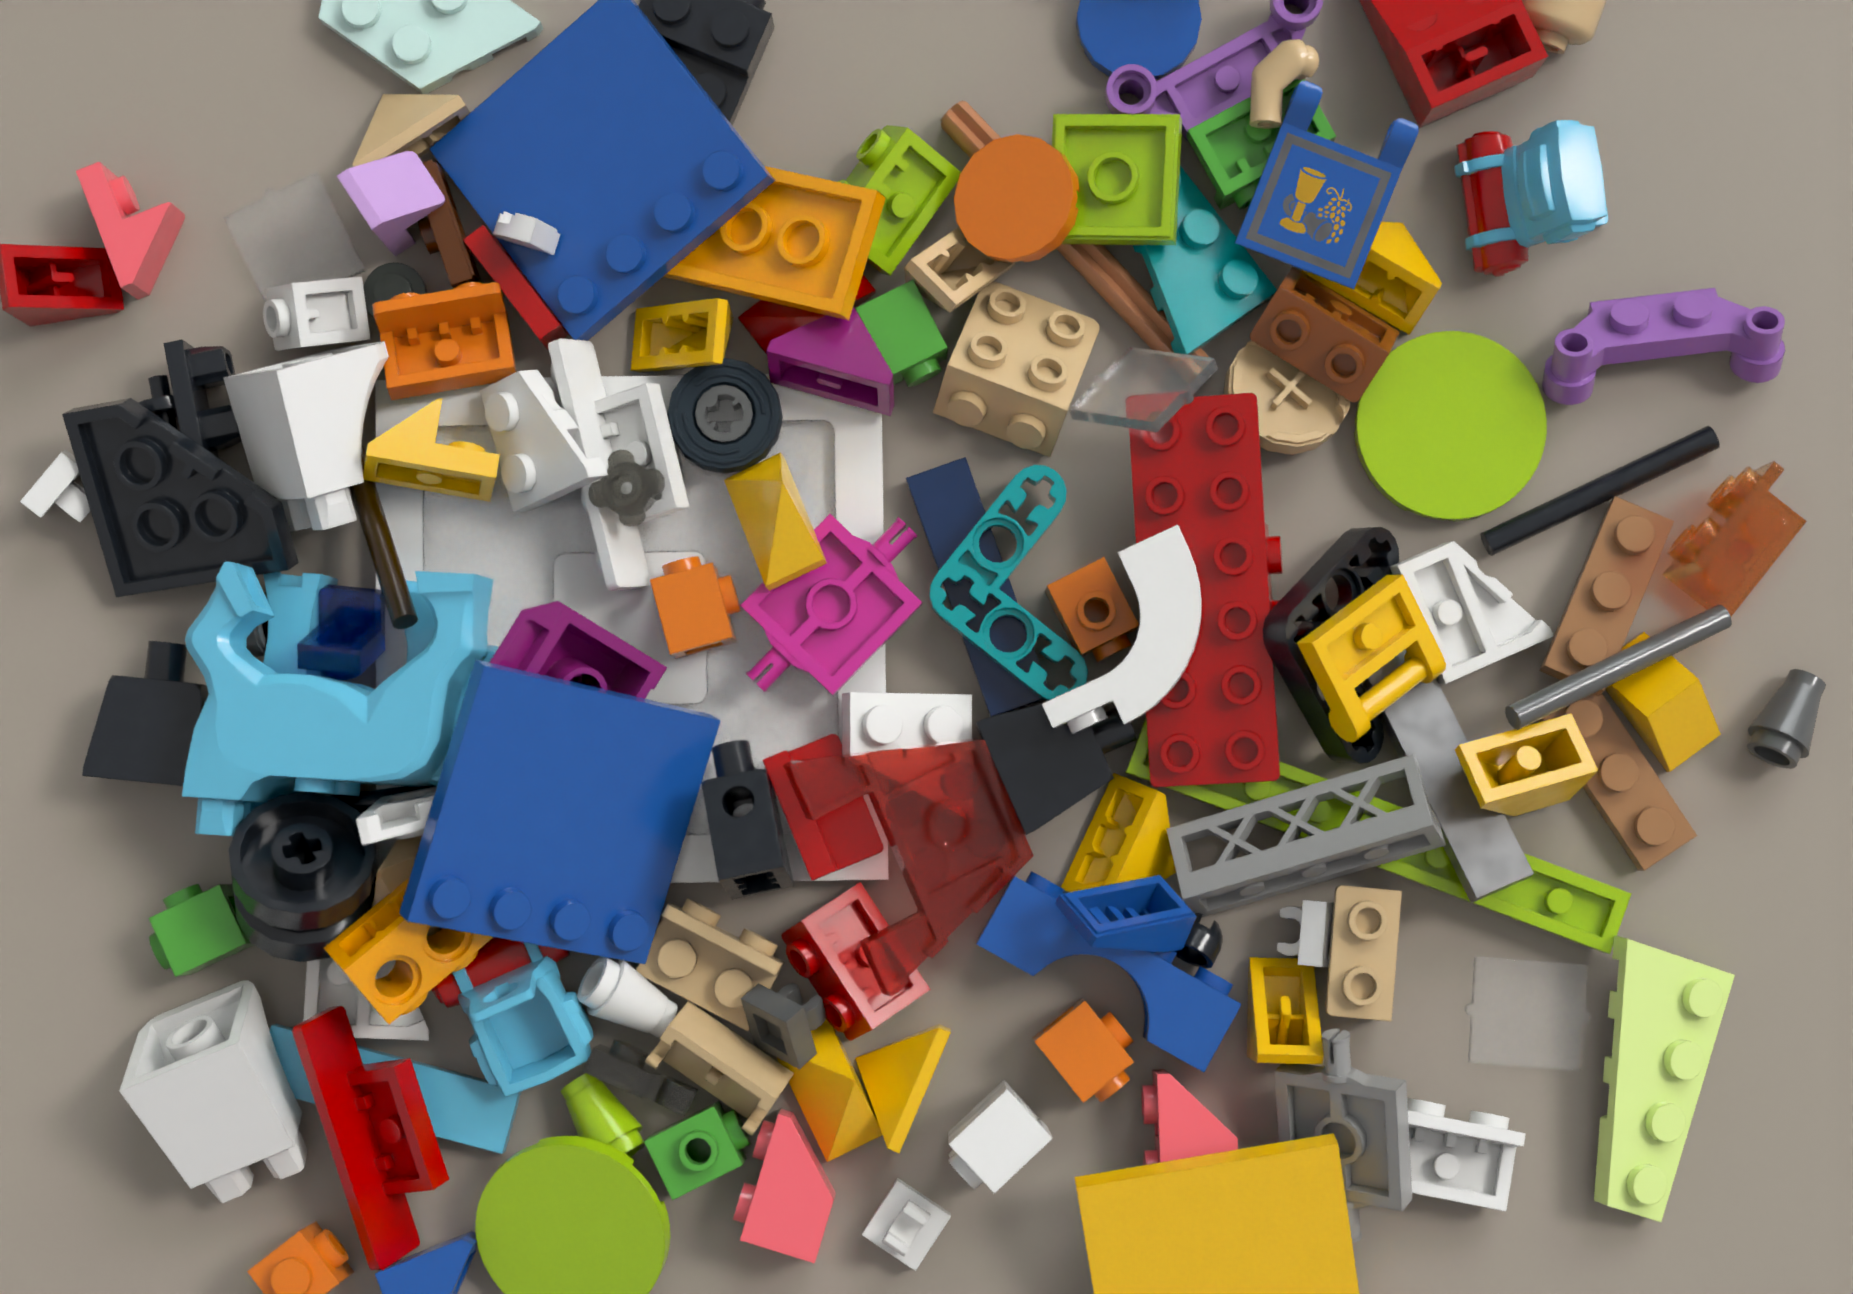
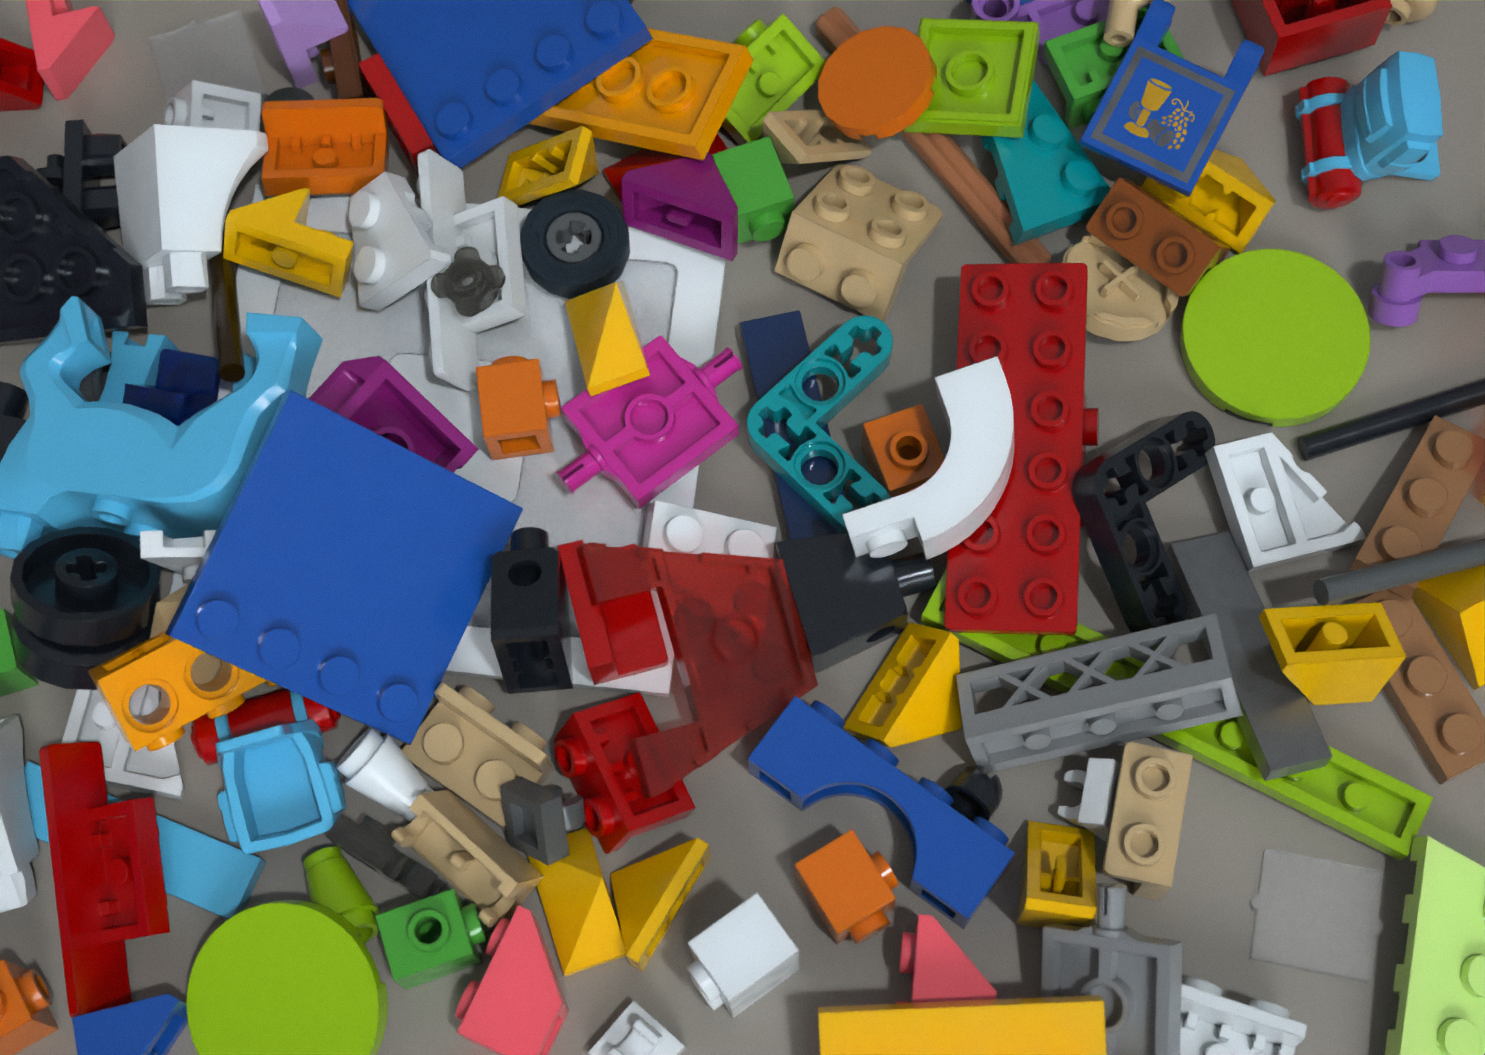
camera: 10 degrees right, 15 degrees down
(526, 232) = (416, 59): white tile -> none
(1130, 915) = (910, 743): blue slope -> none
(1143, 389) = (978, 255): clear piece -> none
(1361, 642) = (1171, 502): yellow plate -> none

